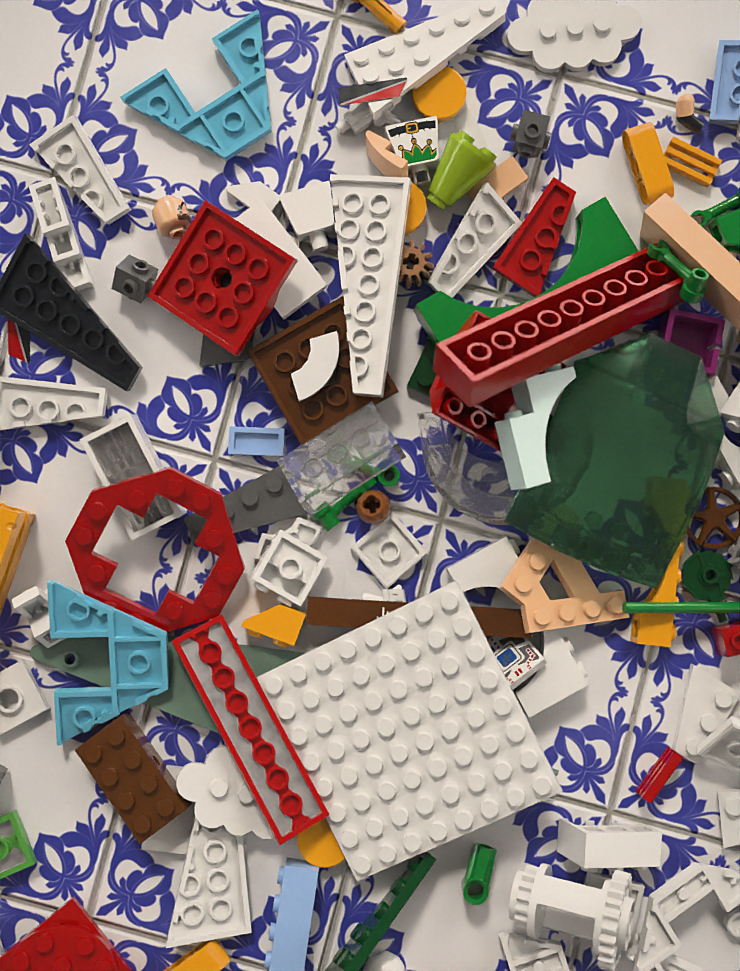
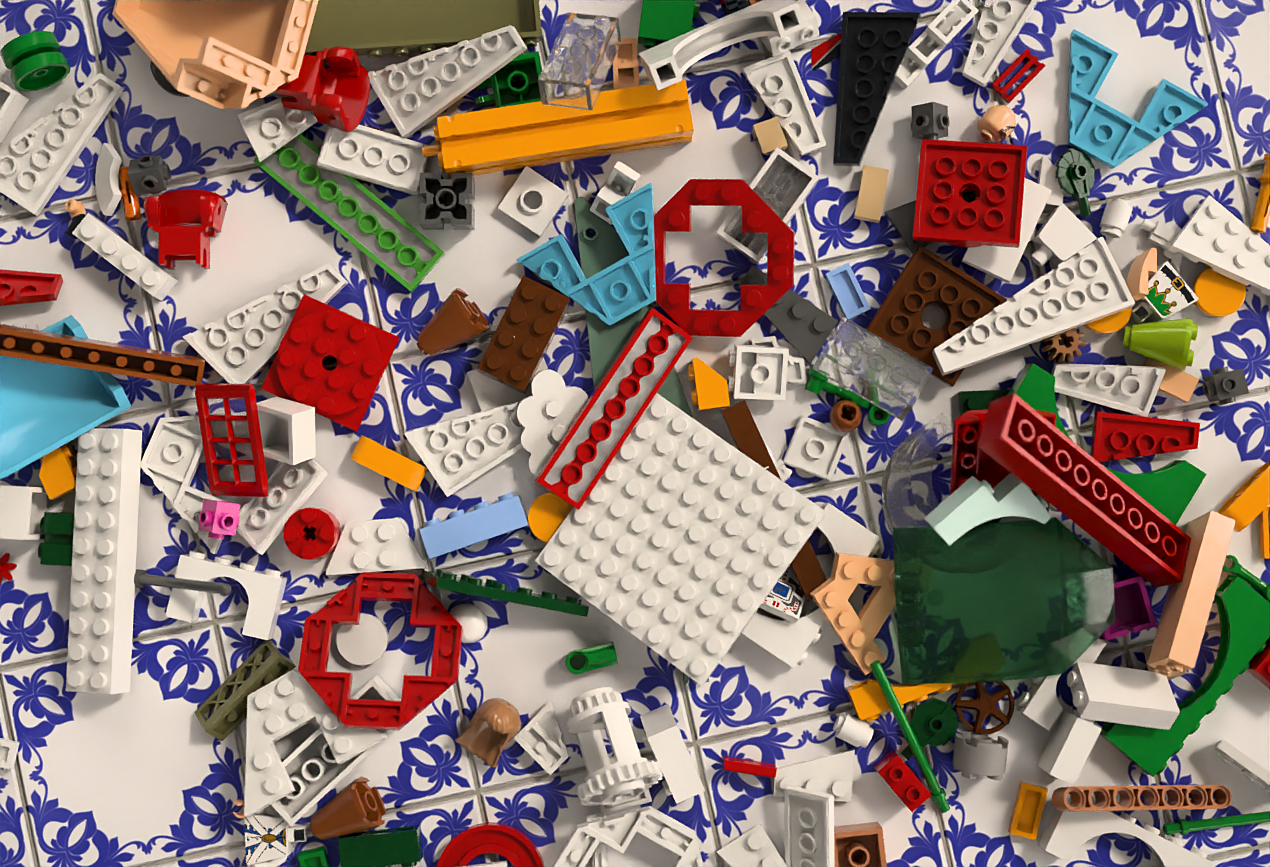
camera: 55 degrees right, 0 degrees up
(66, 437) = (769, 135): none -> tan panel
(86, 840) = (452, 324): none -> dark orange cone
(130, 151) = (1033, 60): none -> red tile
(175, 370) = (871, 194): none -> tan slope
(261, 169) = (1076, 177): none -> dark green piece
(319, 366) = (938, 310): white tile -> none
(320, 153) = (1115, 218): none -> white brick
(371, 92) = (1189, 234): sticker -> none
(675, 658) = (853, 730): none -> white brick
(694, 280) = (1175, 581): green brick -> none

